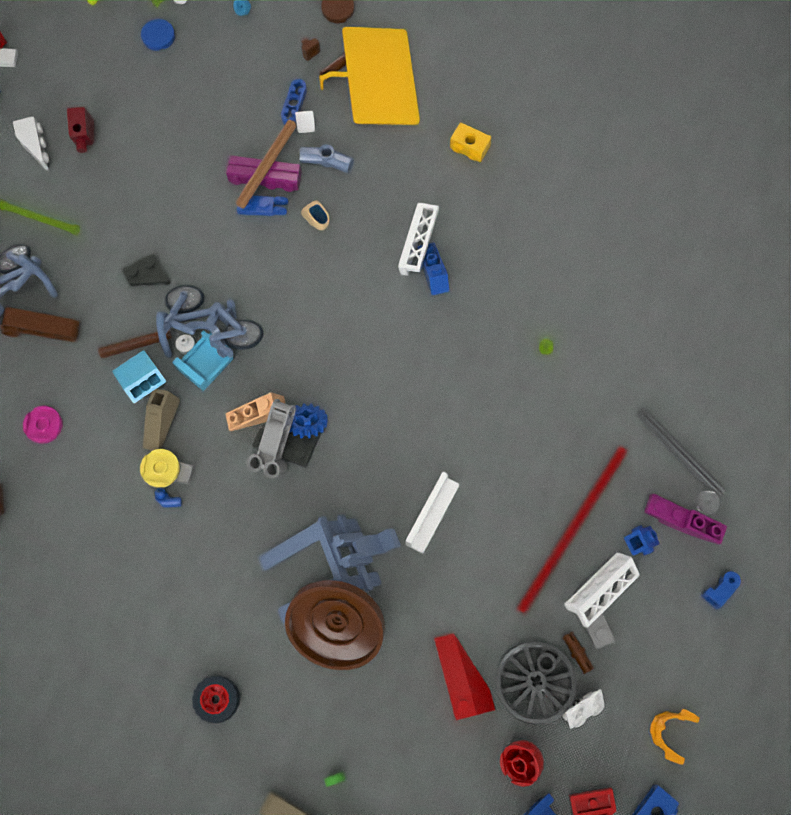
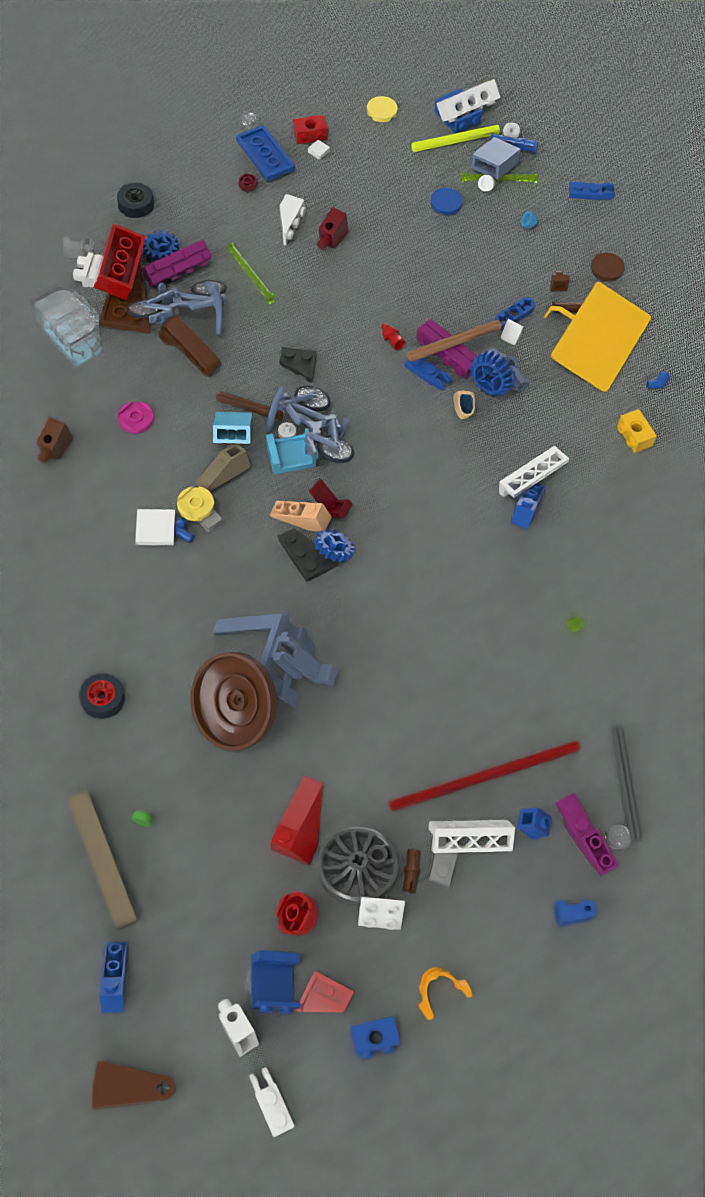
camera: 30 degrees right, 10 degrees down
(141, 514) = (155, 527): none -> white tile
(203, 191) = (390, 333): none -> red piece
(268, 383) = (323, 494): none -> dark red bracket
(273, 441) = (296, 540): light grey piece -> none
(321, 172) = (492, 373): none -> blue gear
(432, 513) = (378, 681): white fence -> none
(456, 84) = (660, 382): none -> blue arm

